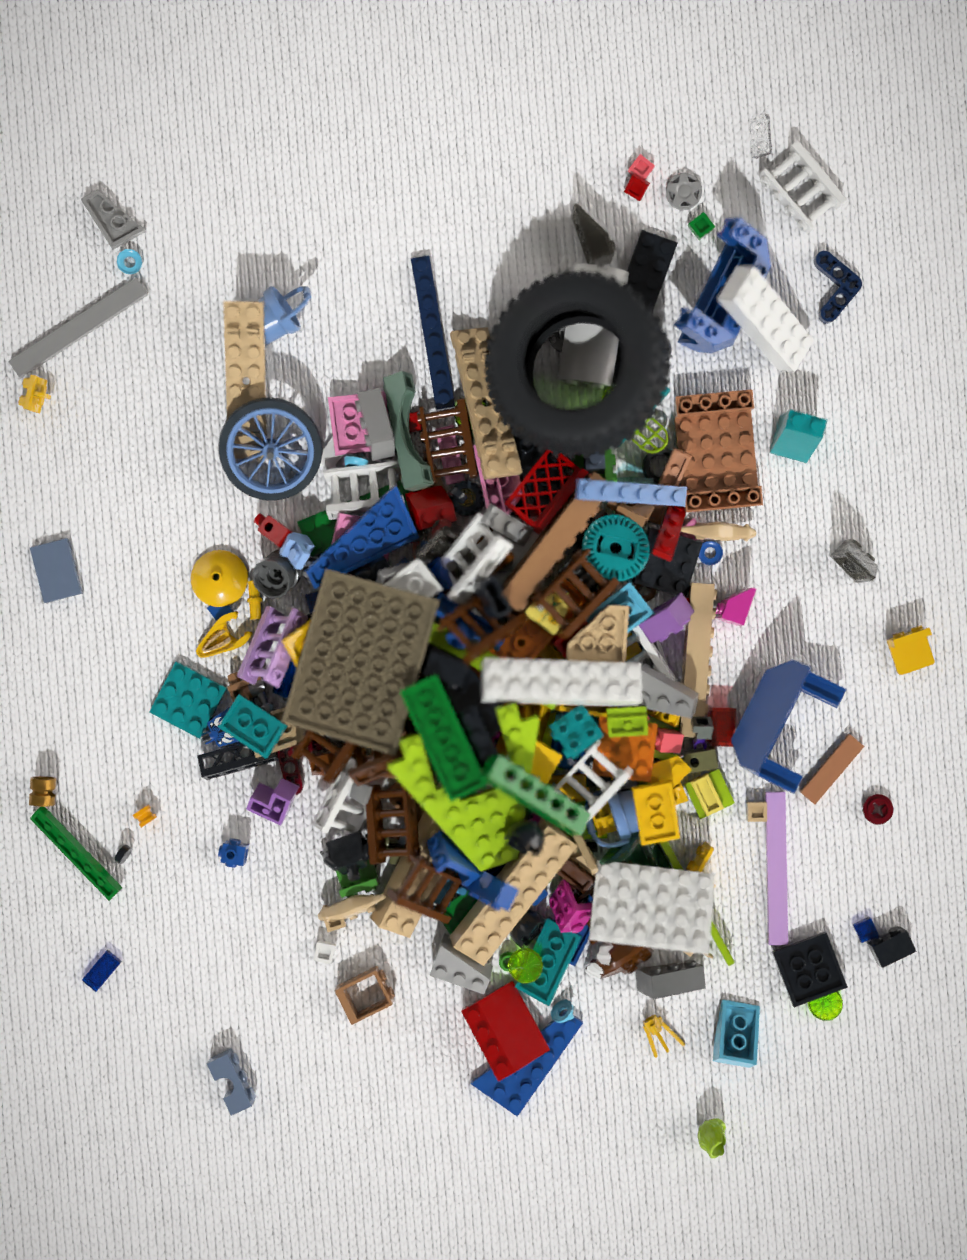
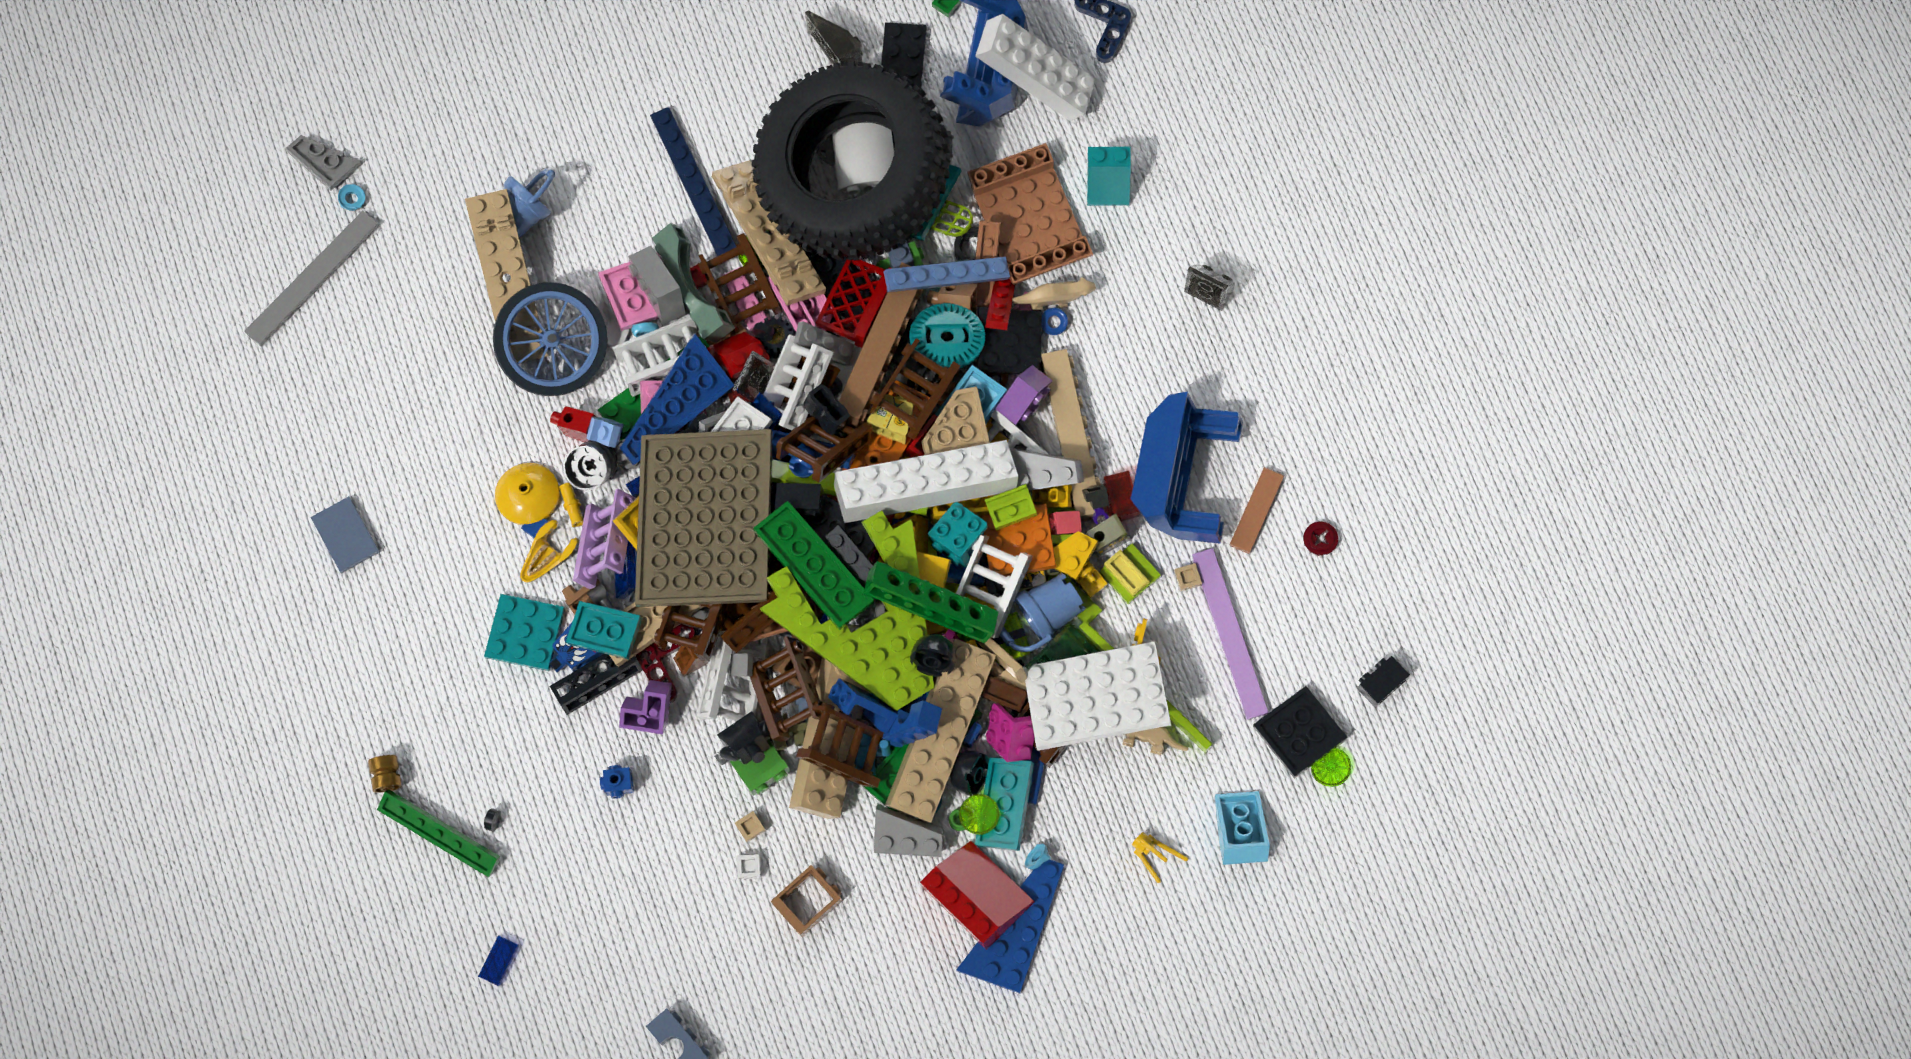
camera: 15 degrees left, 15 degrees down
(35, 393) = (282, 356): yellow hips -> none
(144, 816) = (506, 770): light orange wheel -> none
(350, 907) = (764, 800): tan animal -> none
(604, 821) = (1019, 627): yellow hips -> none
(617, 958) = (1084, 769): reddish brown animal -> none
(655, 812) = (1070, 593): yellow tile -> none
(670, 979) = (1146, 783): dark grey wedge -> none
(712, 1137) = (1248, 948): lime hair -> none
(735, 607) = (1094, 366): dark pink slope -> none
(865, 929) = (1349, 673): clear blue tile -> none
(911, 650) = (1300, 360): yellow bracket -> none

